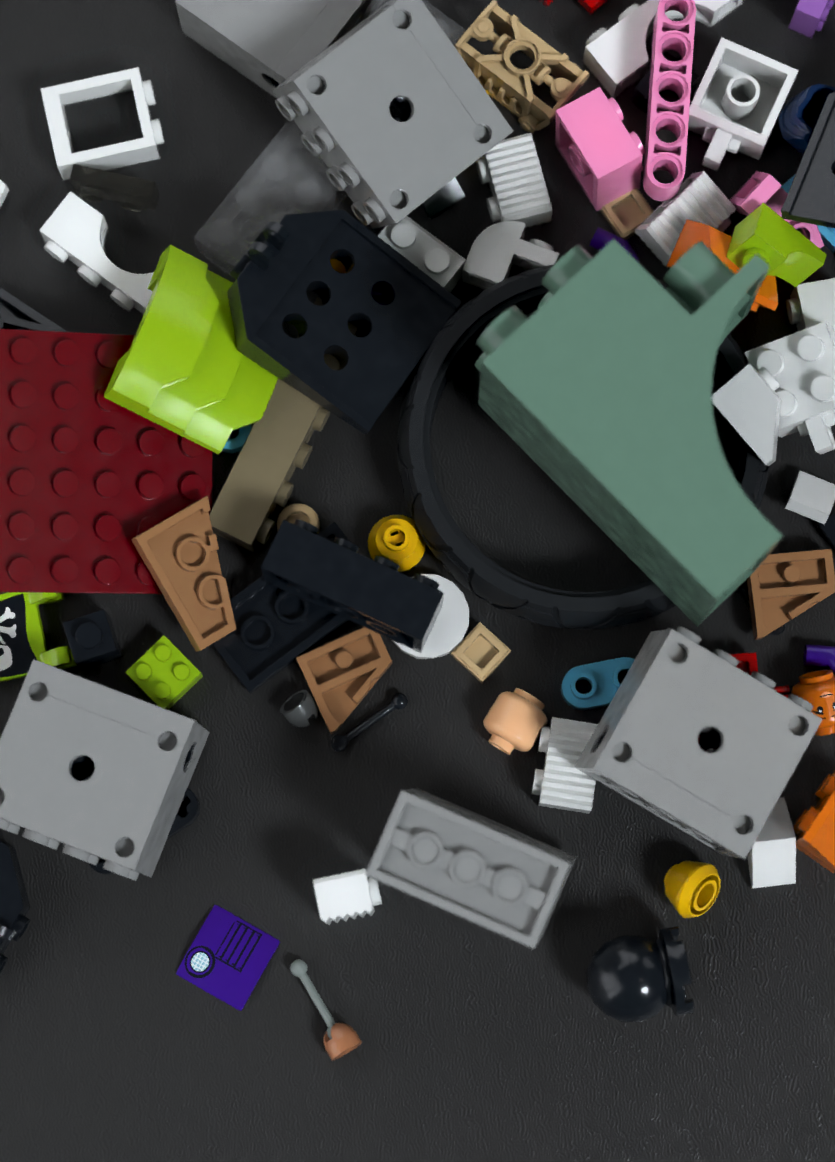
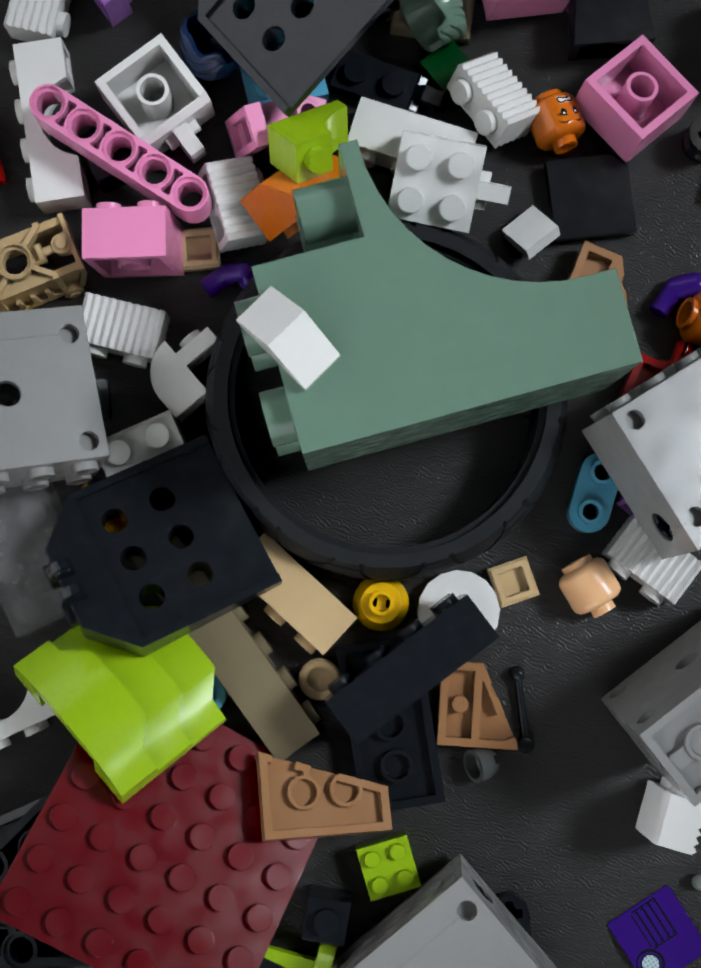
camera: 65 degrees left, 5 degrees up
(360, 470) = (304, 602): none -> tan brick
(570, 299) = (289, 337): none -> white slope
(752, 409) = (452, 233): white slope -> none

